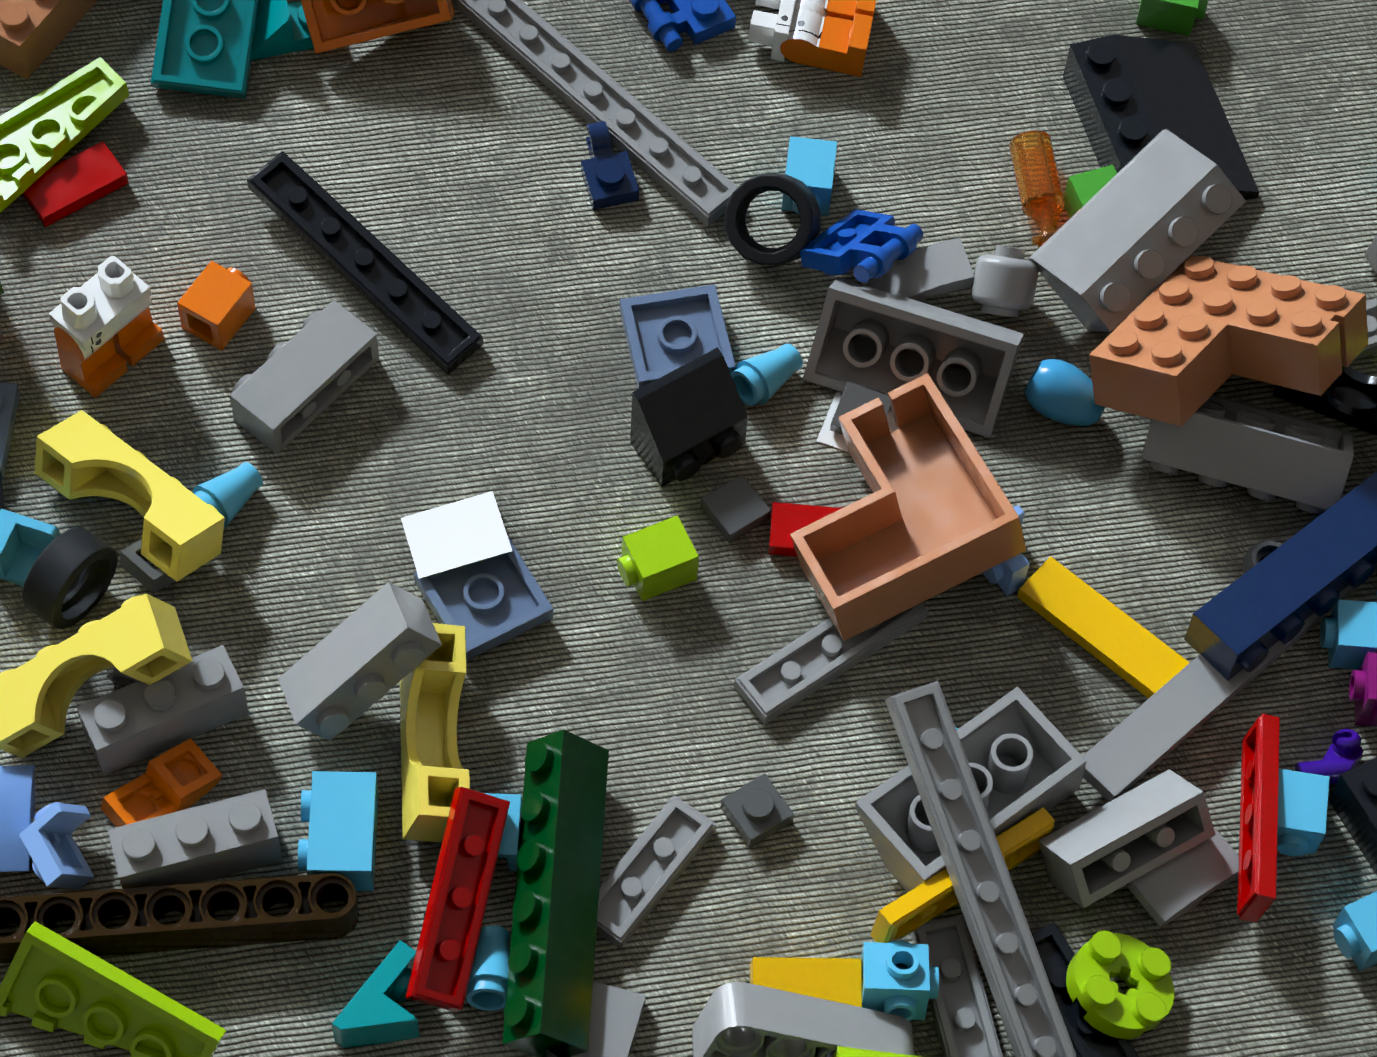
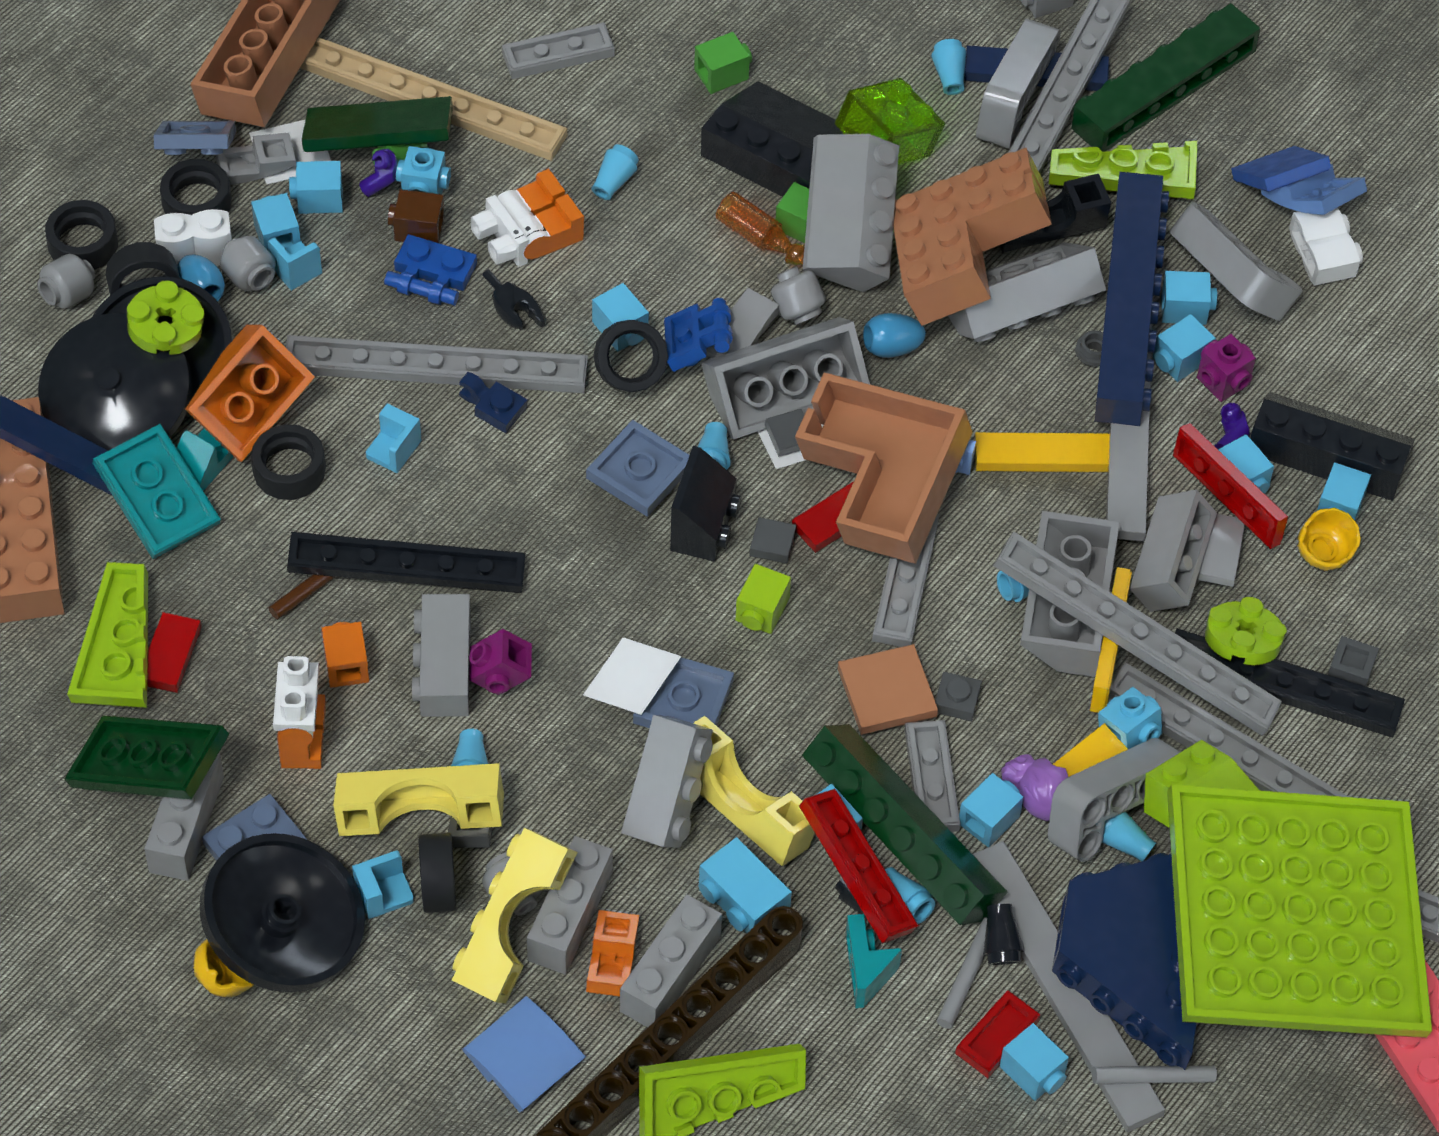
camera: 40 degrees left, 5 degrees down
(54, 850) = (595, 1036): light blue bracket -> none
(240, 218) = (298, 595): none -> reddish brown bar
(340, 422) = (500, 662): none -> magenta brick
(358, 115) = (288, 486): none -> black tyre
(478, 140) = (397, 438): none -> medium azure panel
(665, 952) = (991, 809): none -> medium azure brick
(689, 746) = (887, 689): none -> nougat tile
(725, 82) = (510, 298): none -> black hand
(730, 955) = (1035, 782): none -> medium lavender hair
(954, 30) = (615, 170): none -> medium azure cone
(1280, 174) = (893, 114): none -> clear neon green brick
(1312, 959) = (1329, 539): none -> yellow hair

